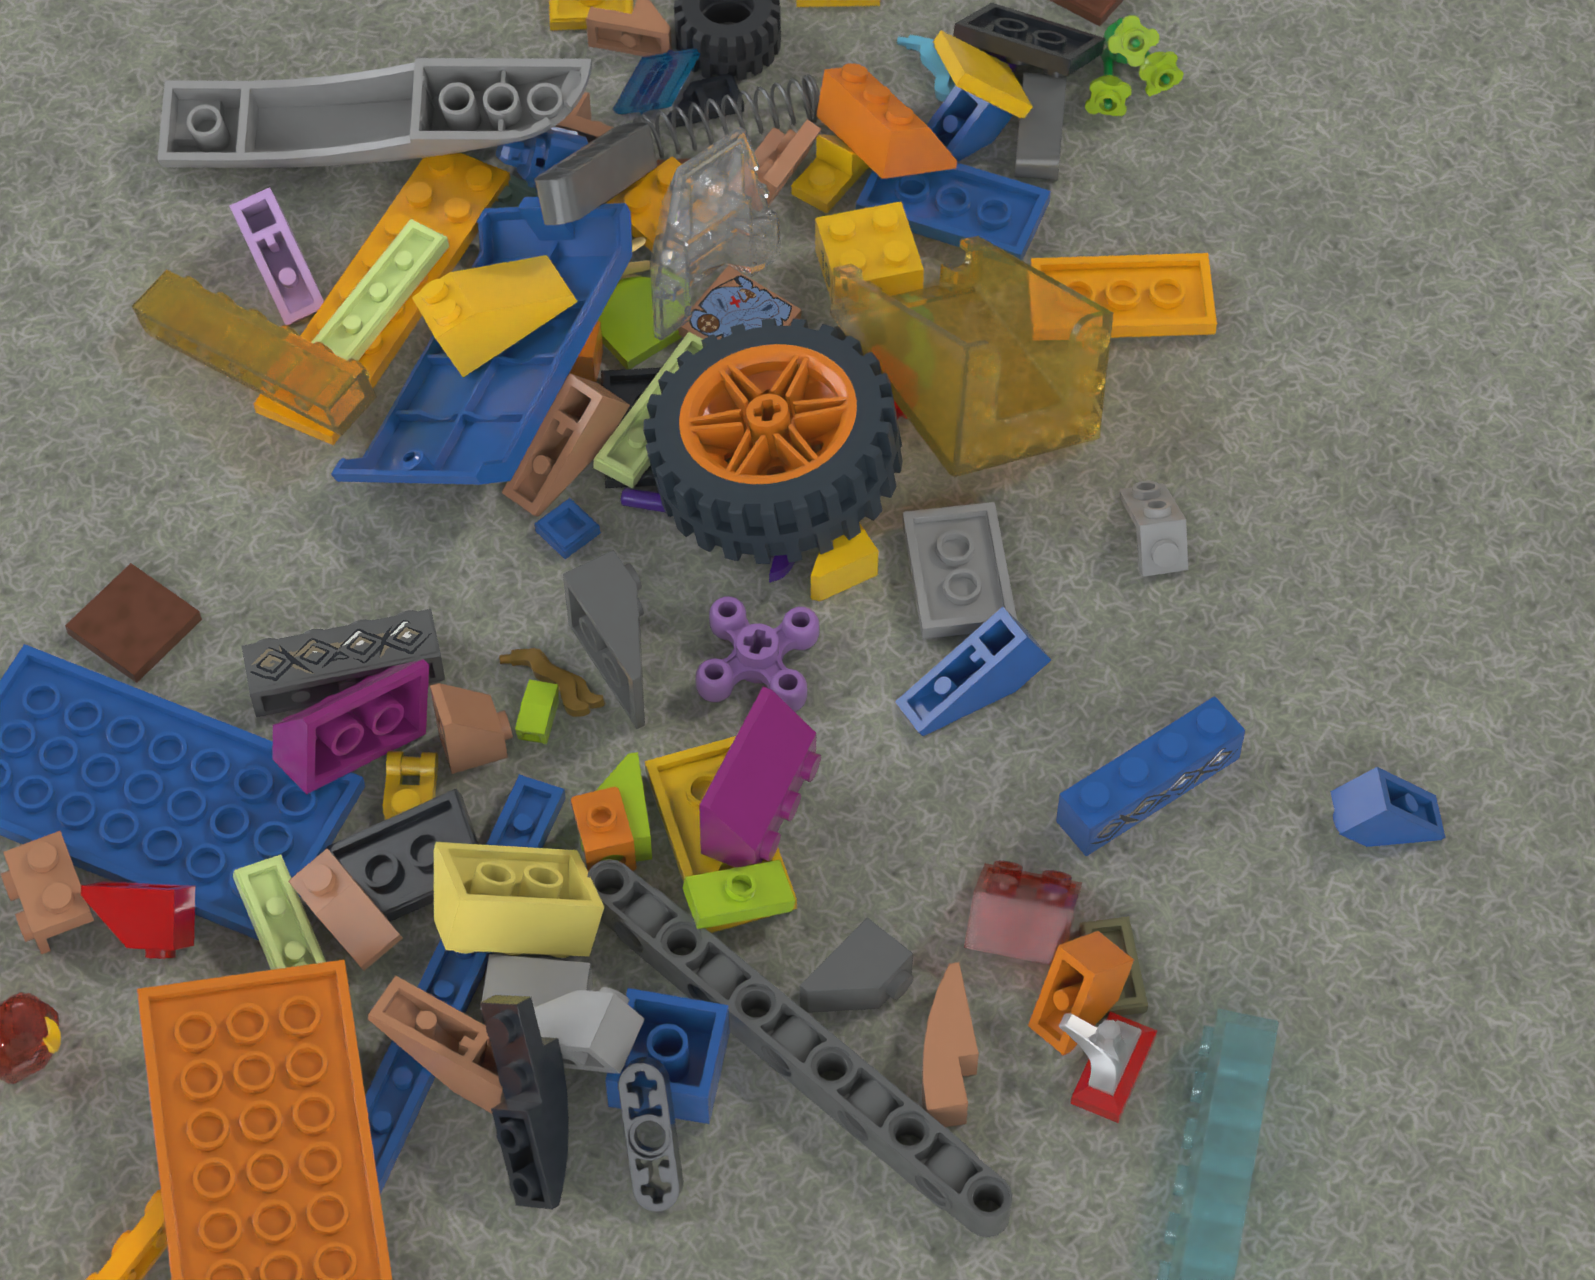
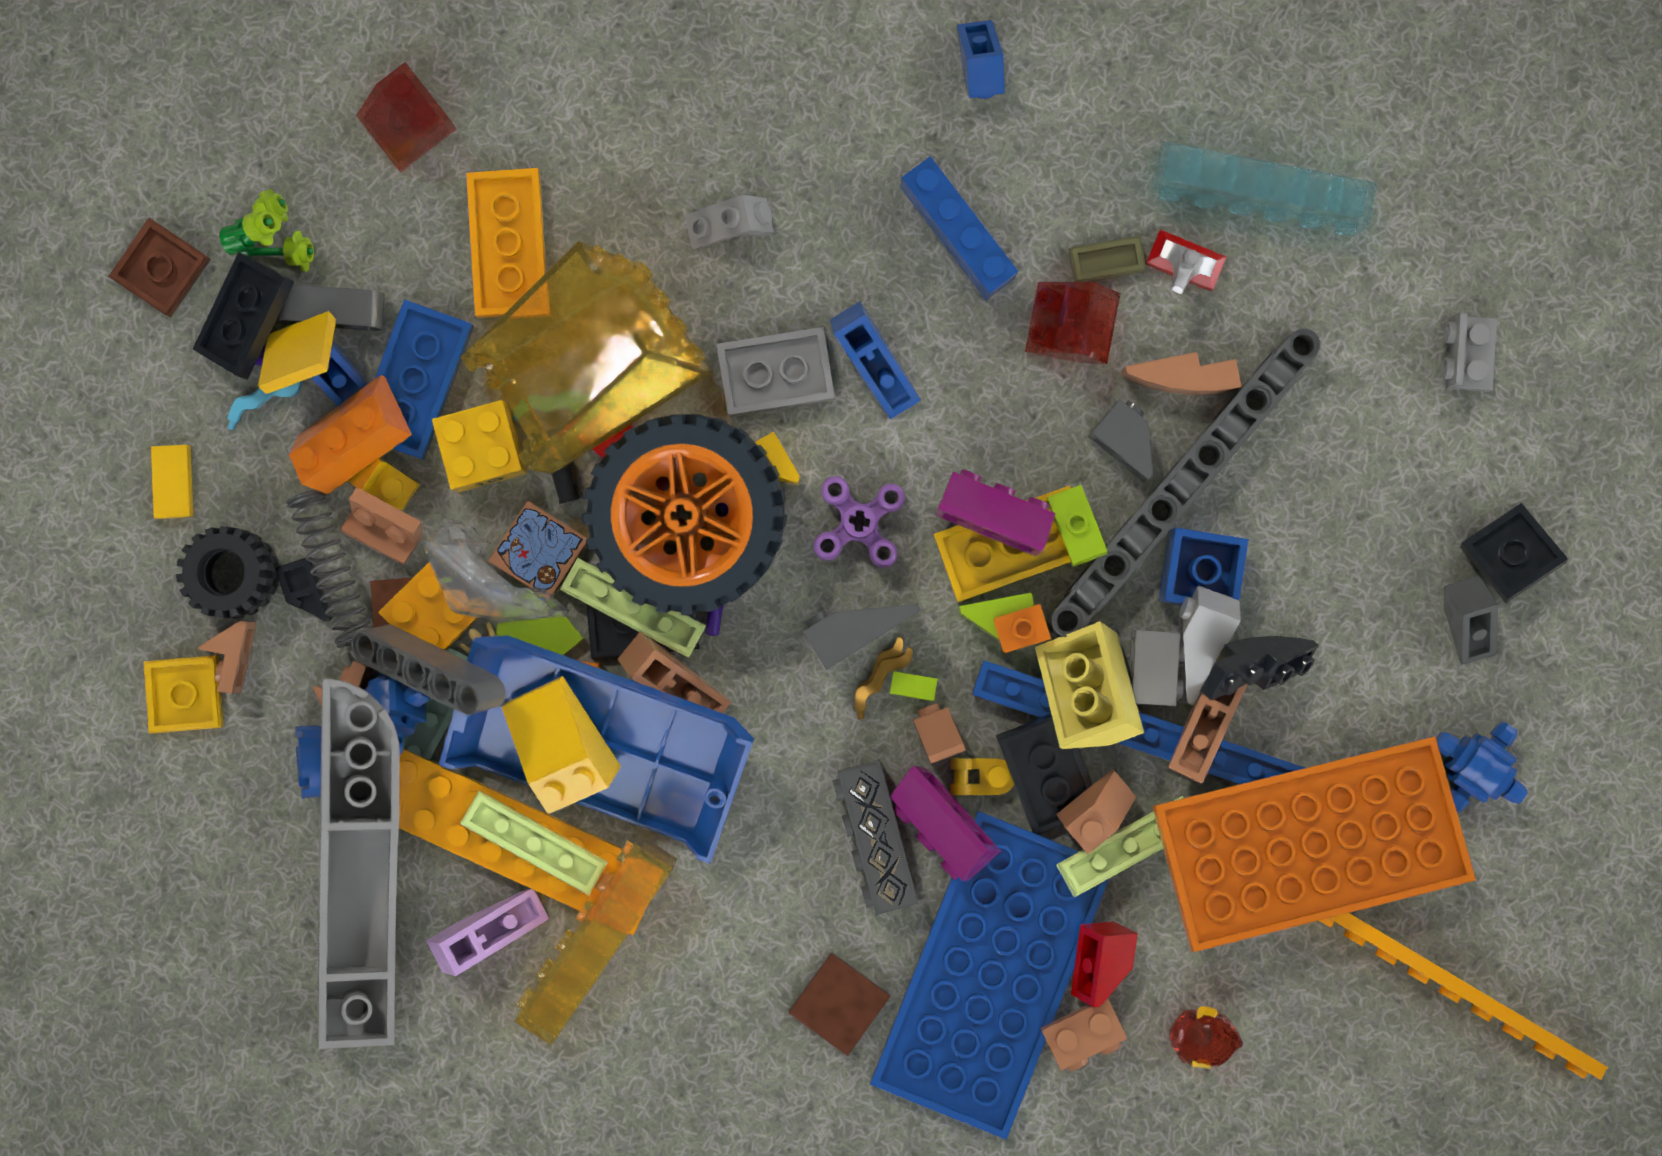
camera: 90 degrees left, 30 degrees up
(567, 528) = (741, 675): blue tile -> none
(656, 81) = (290, 630): clear blue piece -> none
(669, 1170) = (1259, 574): beam -> none
(1081, 981) = (1140, 280): orange slope -> none
(1278, 201) = (404, 117): none -> clear red slope

